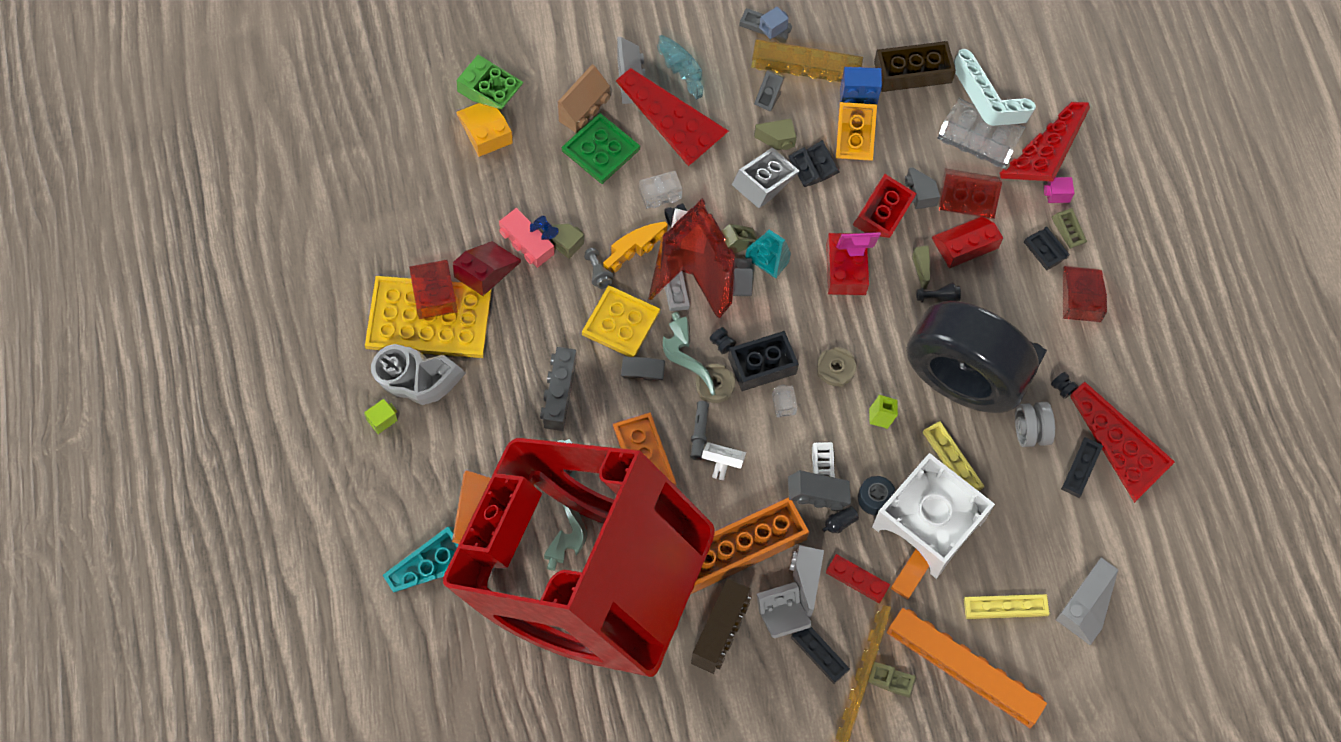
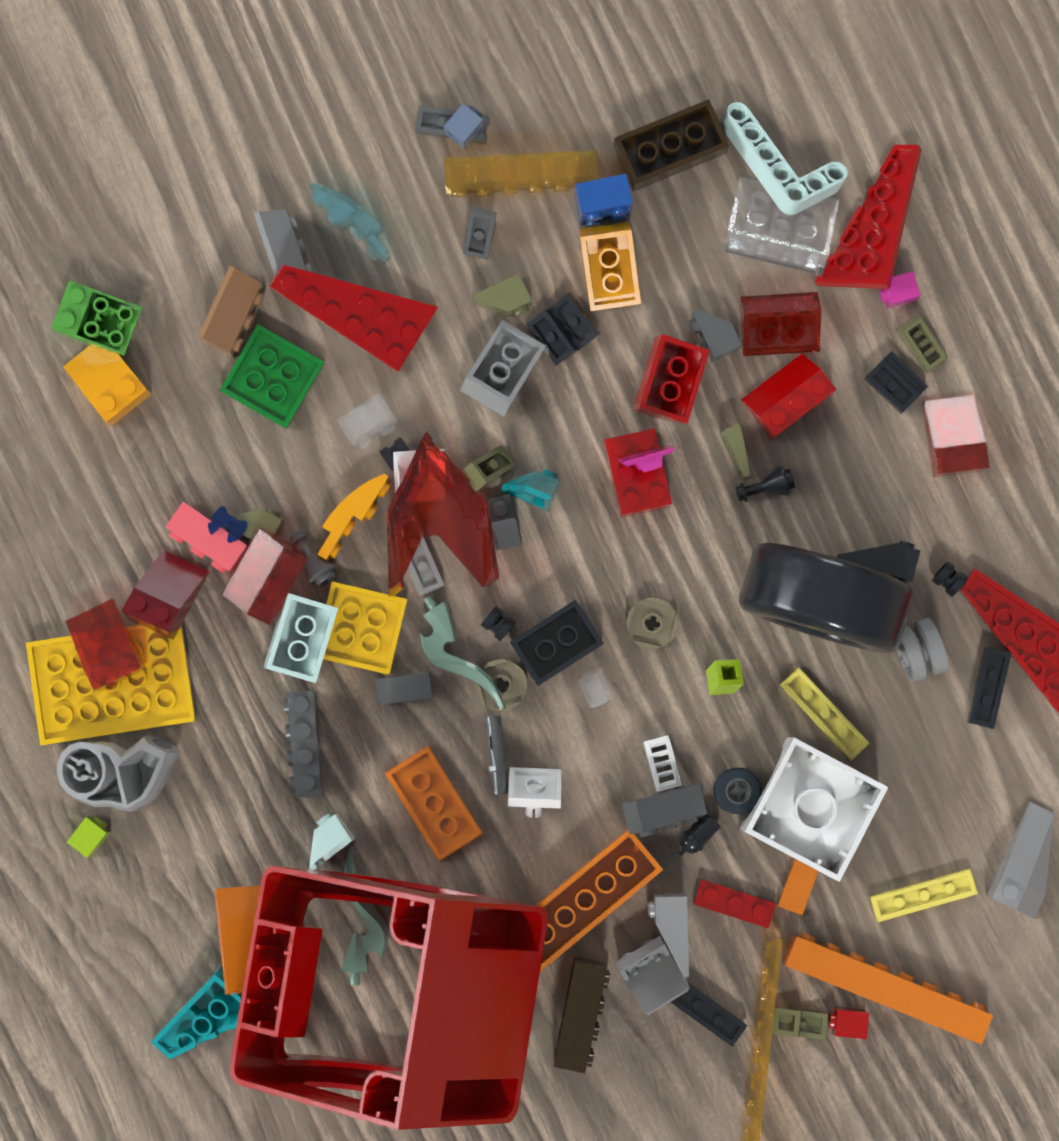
camera: 10 degrees left, 20 degrees up
(561, 266) = (265, 575): none -> clear red slope
(575, 314) = (300, 637): none -> light aqua slope
(931, 686) = (849, 1022): none -> red brick

